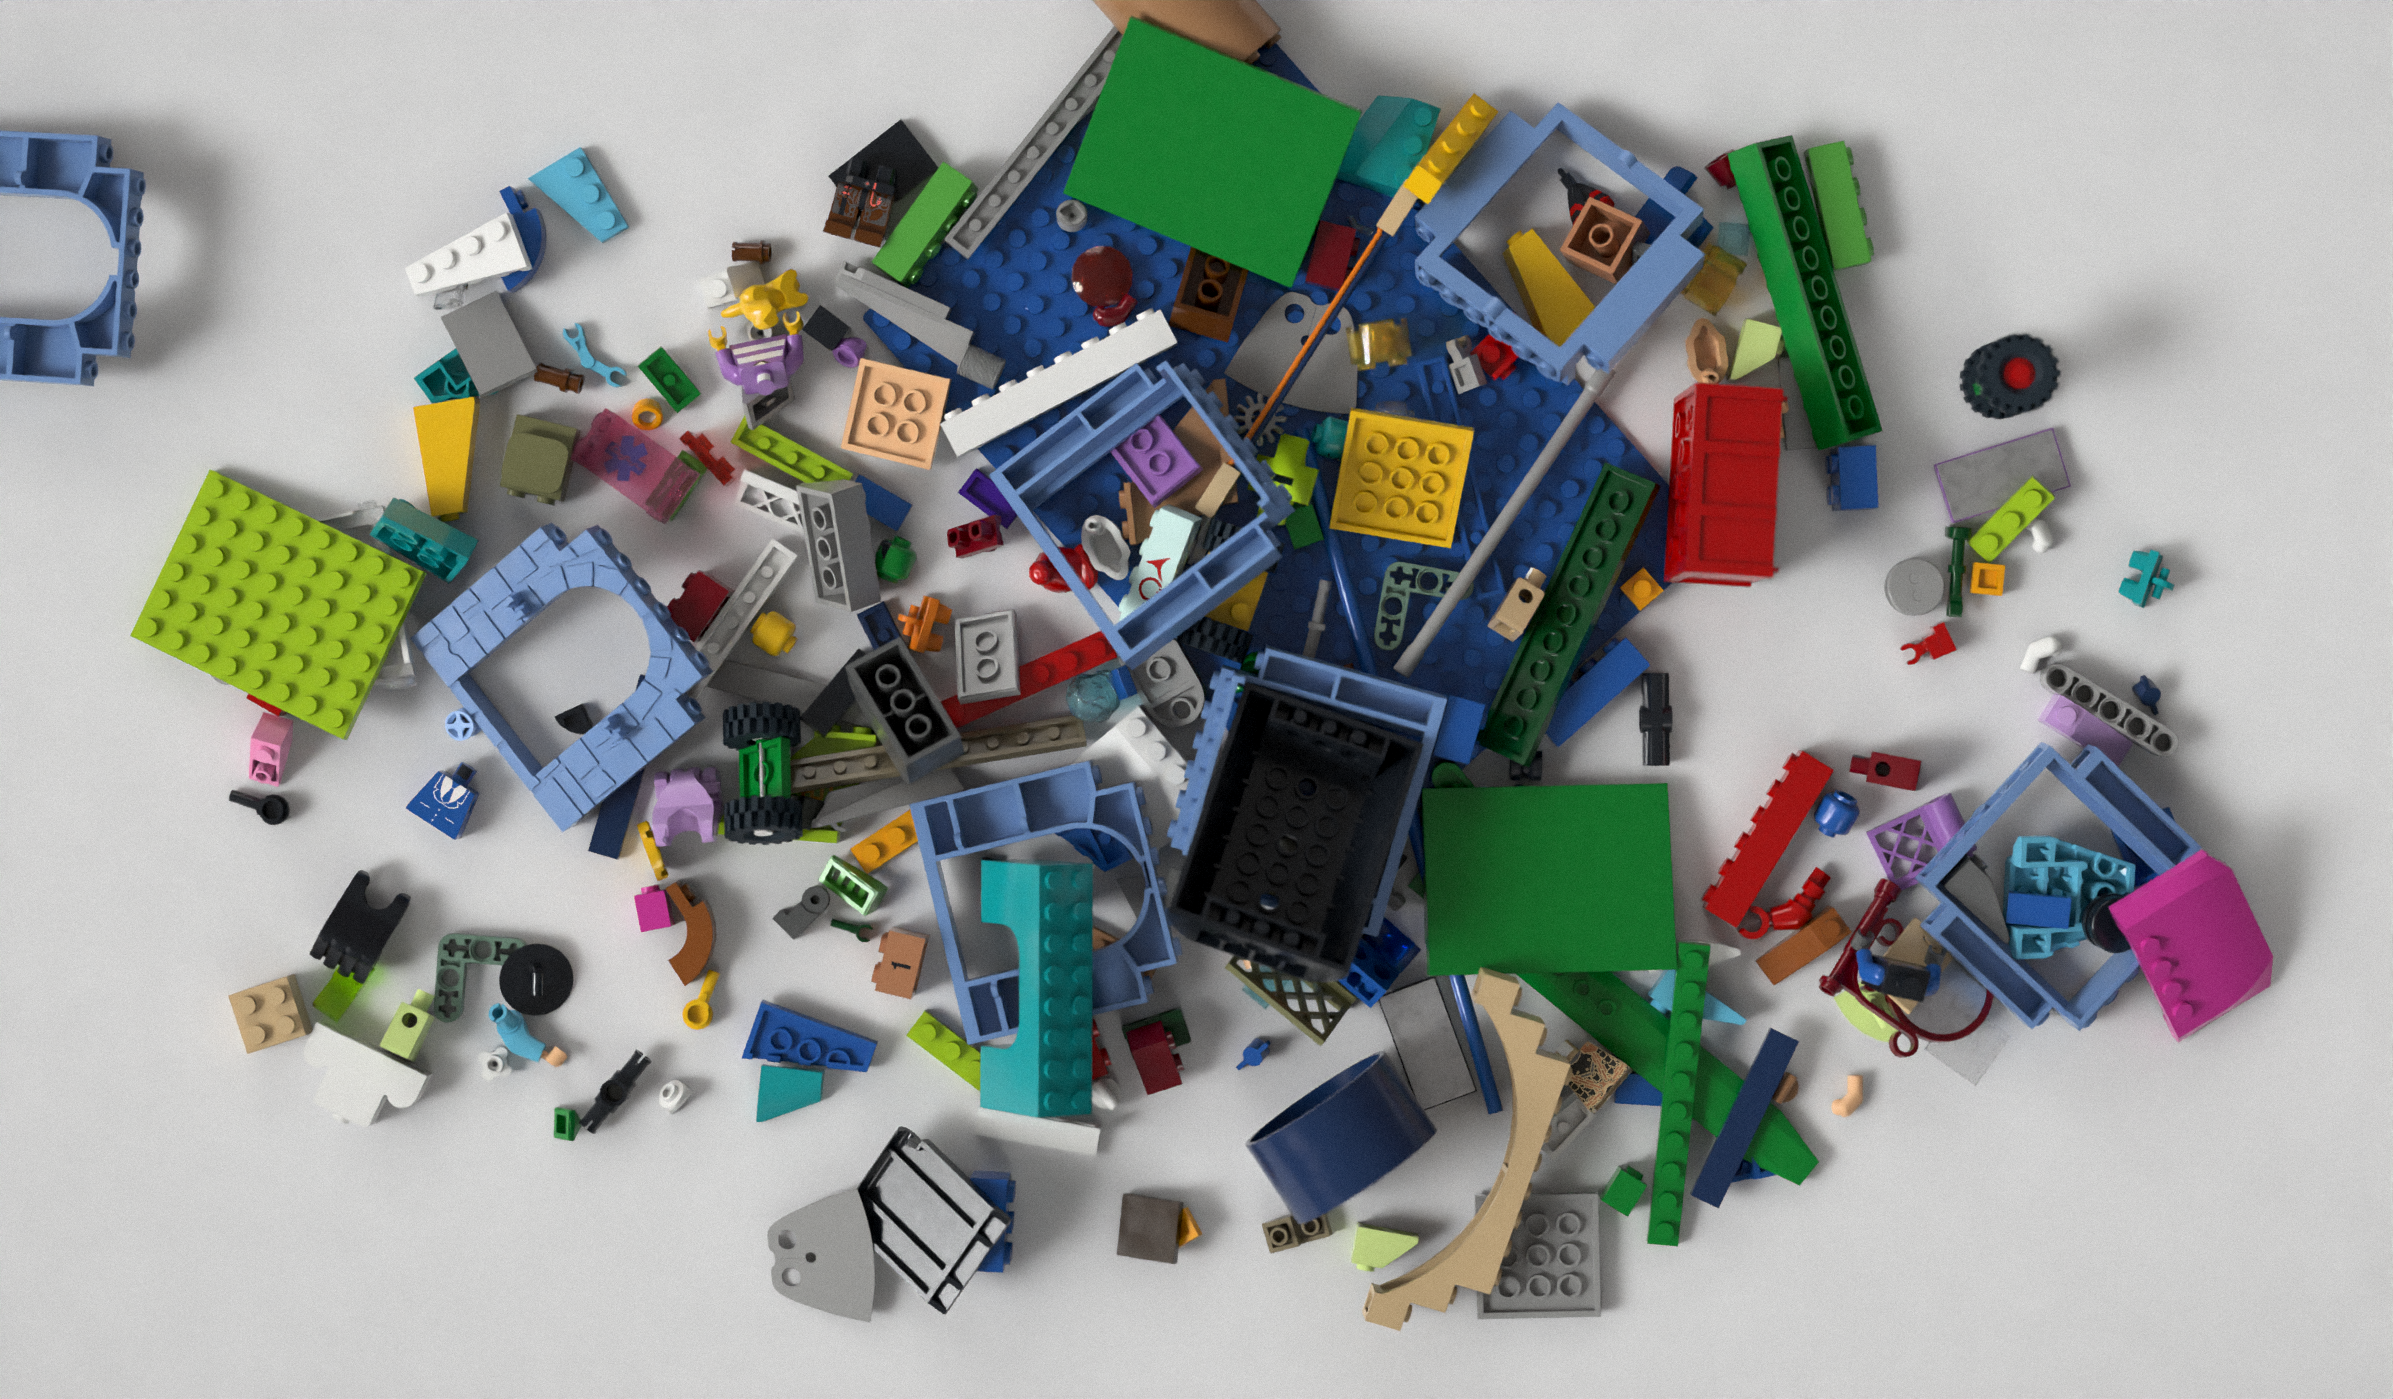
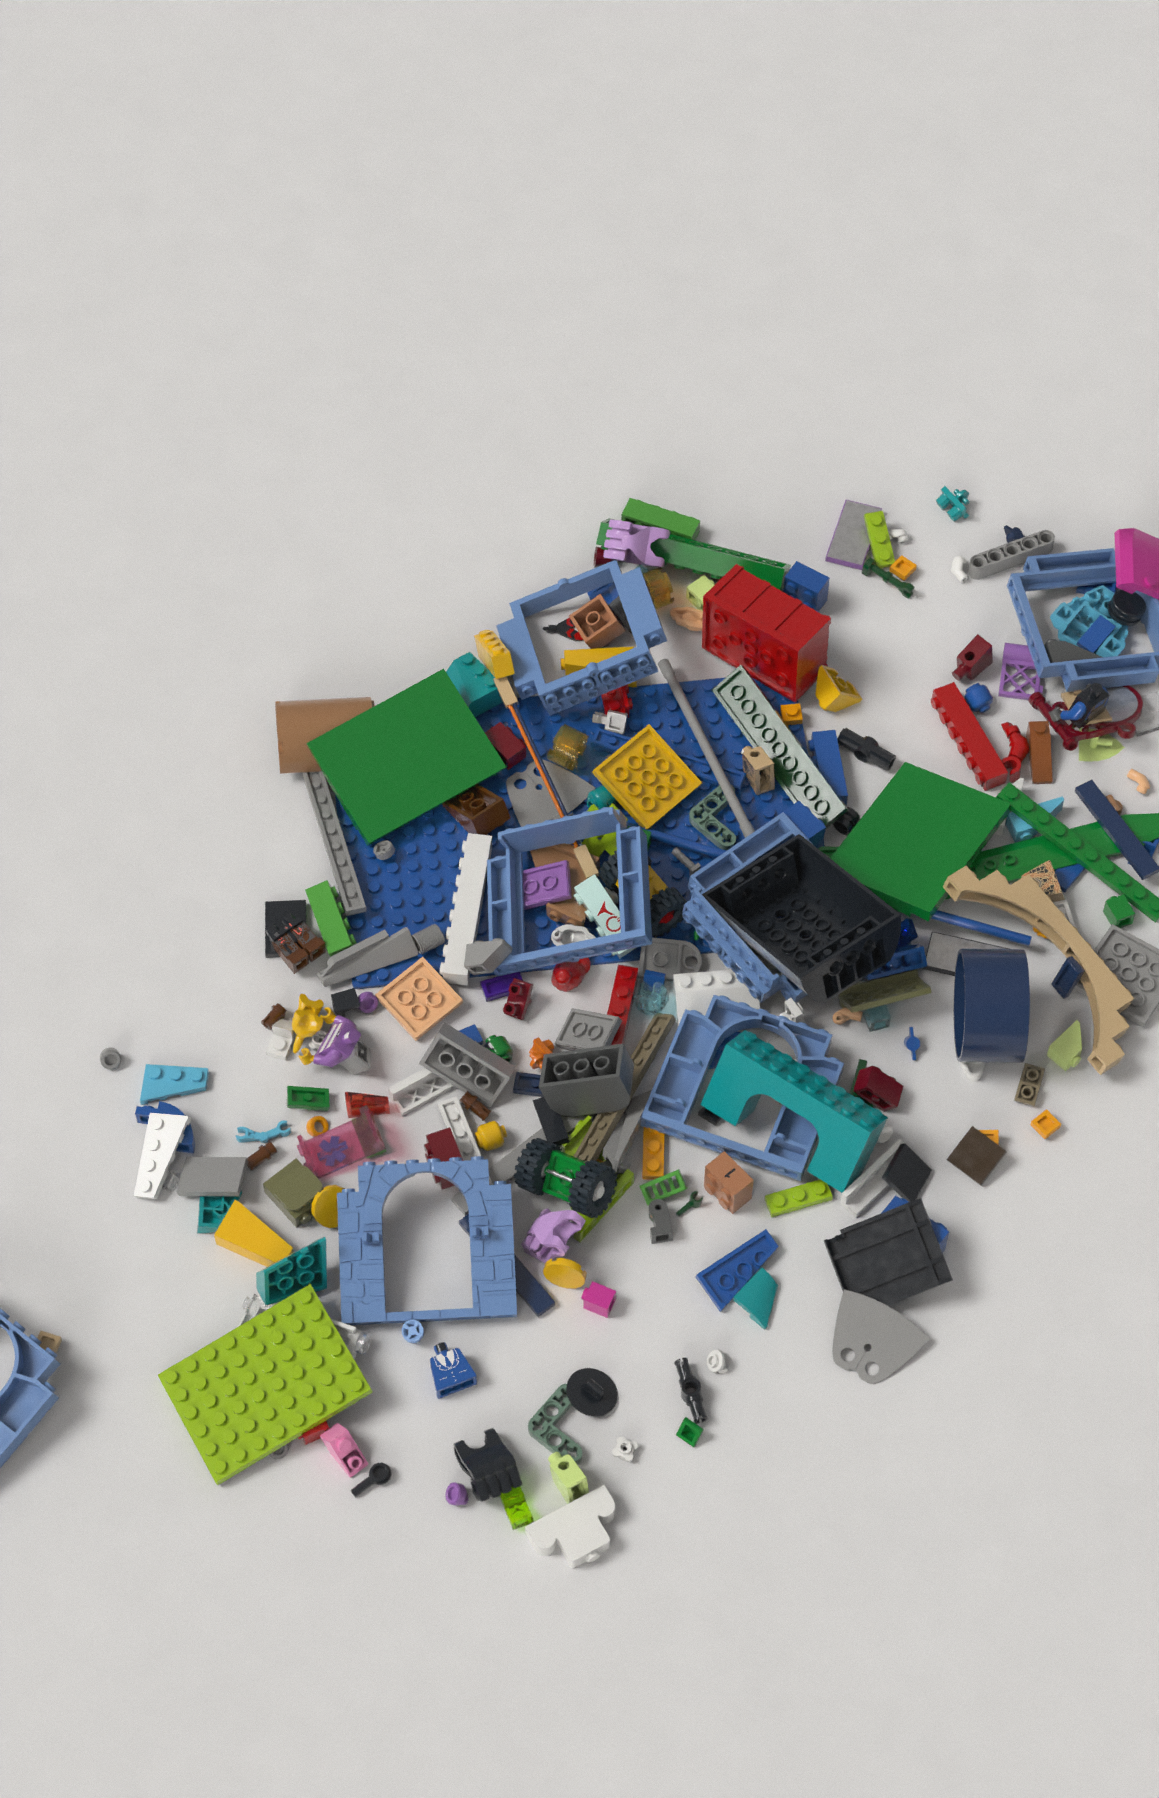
camera: 55 degrees left, 30 degrees down
(155, 314) = (49, 1340): none -> tan plate
(270, 1013) = (500, 1554): tan brick -> none
(309, 914) = (456, 1494): none -> medium lavender tile
(517, 1037) = (617, 1424): medium azure arm -> none
(539, 510) = (325, 1206): none -> yellow tile
(557, 97) = (110, 1058): none -> light grey tile
(575, 720) = (458, 1274): black tile -> none
(698, 1013) = (677, 1316): yellow plate -> none
(700, 933) = (632, 1284): dark orange arch -> none
(787, 454) = (393, 1069): lime plate -> none
(800, 586) = (471, 1102): none -> reddish brown pin
(991, 462) = (485, 956): none -> light grey slope
(1064, 1163) = (906, 1173): none -> black tile
(1101, 276) = (427, 857): clear red dish -> none
(1115, 315) = (452, 862): dark red arm -> none
(1253, 1282) = (1045, 1124): none -> light orange plate
(1473, 1189) = (1067, 977): none -> dark blue tile
(1719, 620) = (833, 691): none -> yellow slope
(1750, 214) = (632, 543): none -> lavender piece
(1914, 587) = (883, 600): light grey head -> none
(1936, 644) = (920, 607): red piece -> none
(2009, 376) = (804, 499): black plate -> none
(2084, 728) = (1000, 571): lavender slope -> none

